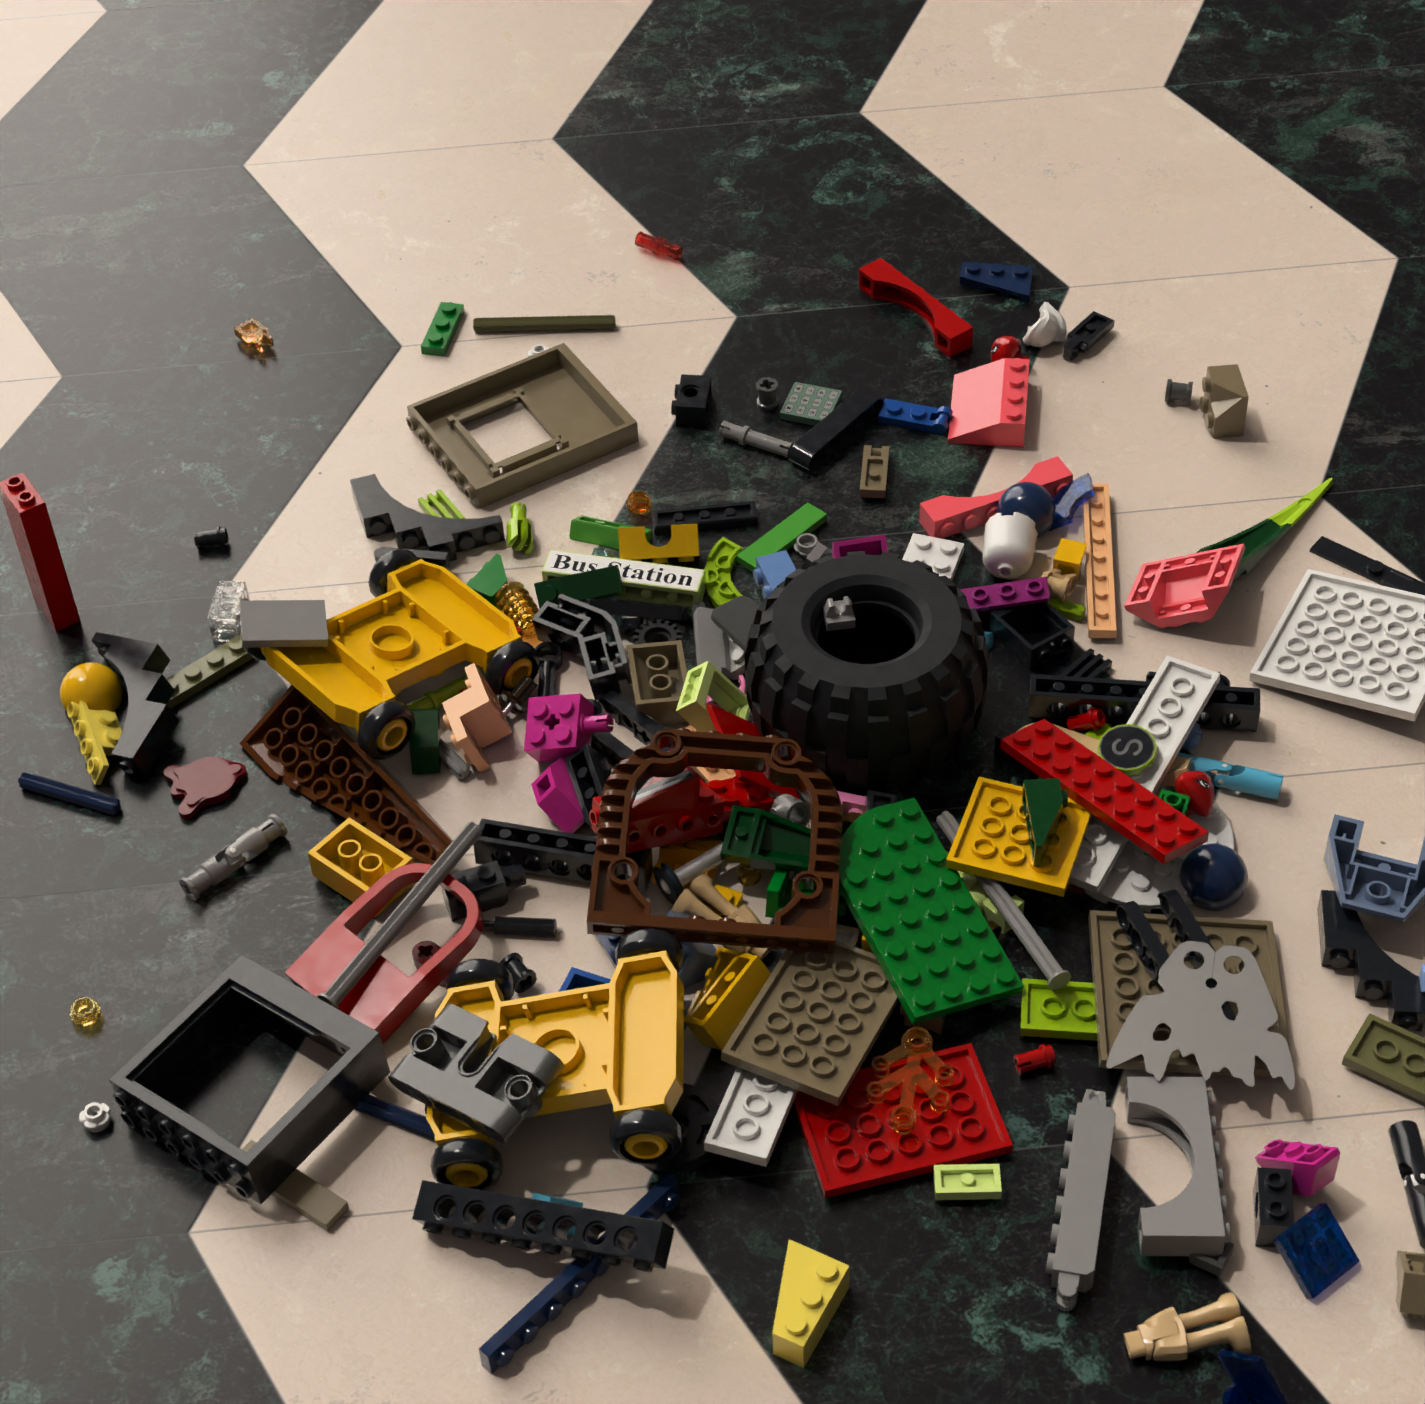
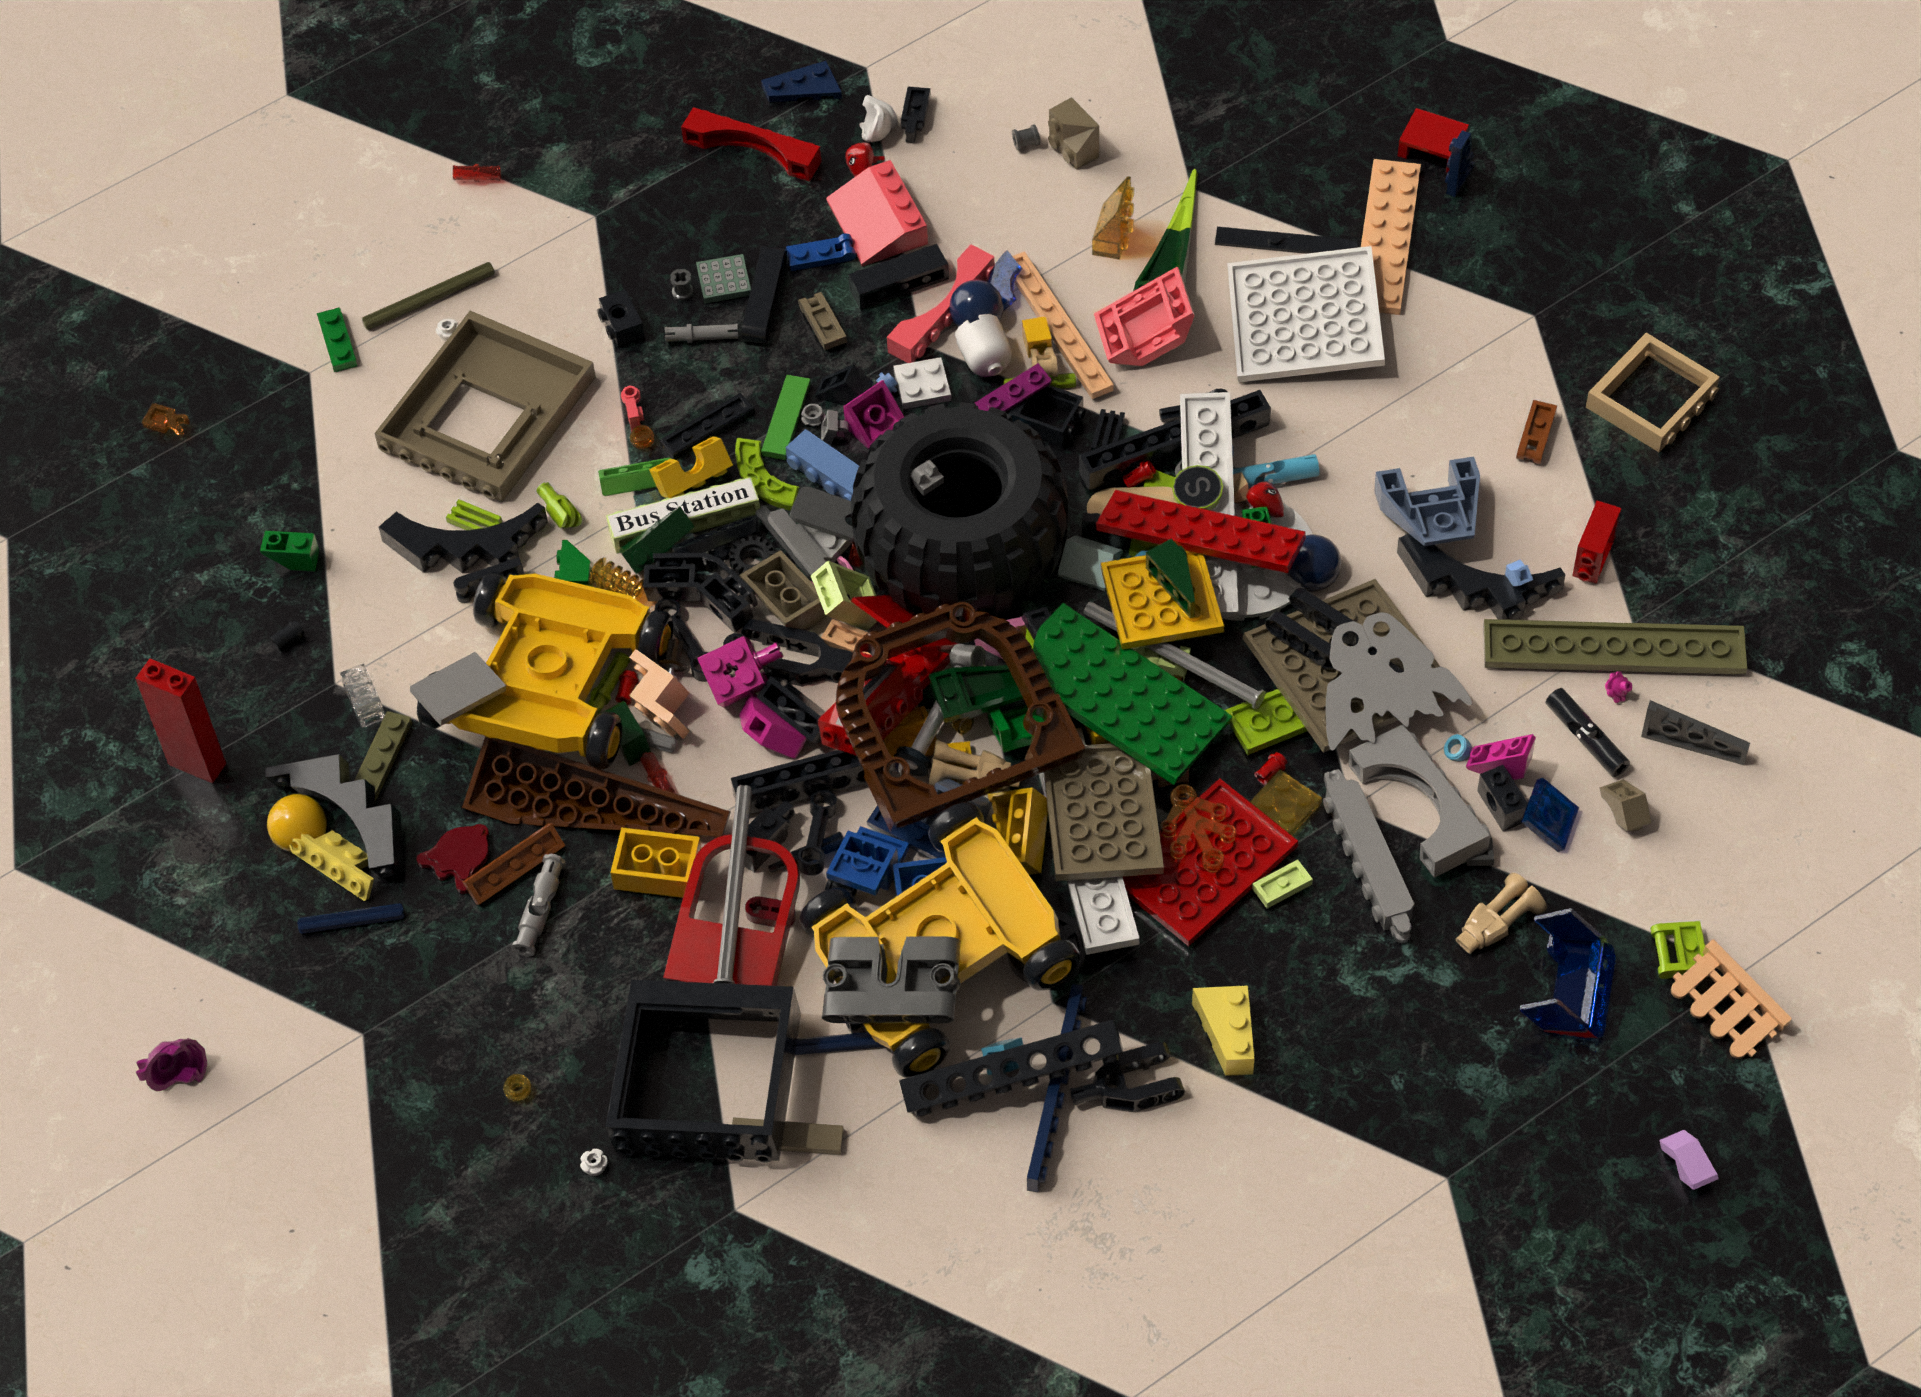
camera: 30 degrees left, 10 degrees up
(240, 810) = (513, 863): none -> dark orange plate
(267, 471) = (291, 549): none -> green slope
(428, 790) = (655, 772): none -> clear red axle
(529, 908) = (817, 832): none -> black piece
(548, 952) = (867, 860): none -> blue bracket
(645, 475) = (630, 397): none -> coral plate
(660, 1327) = (1137, 1097): none -> black piece
(852, 527) = (843, 385): none -> black slope
(896, 544) = (889, 381): none -> medium blue plate
(972, 460) = (898, 276): none -> black brick
(974, 764) = (1083, 561): none -> light aqua slope
(1028, 1102) = (1286, 801): none -> clear yellow plate
(1213, 490) = (1115, 222): none -> clear yellow slope
(1265, 1136) = (1464, 751): none -> medium azure piece

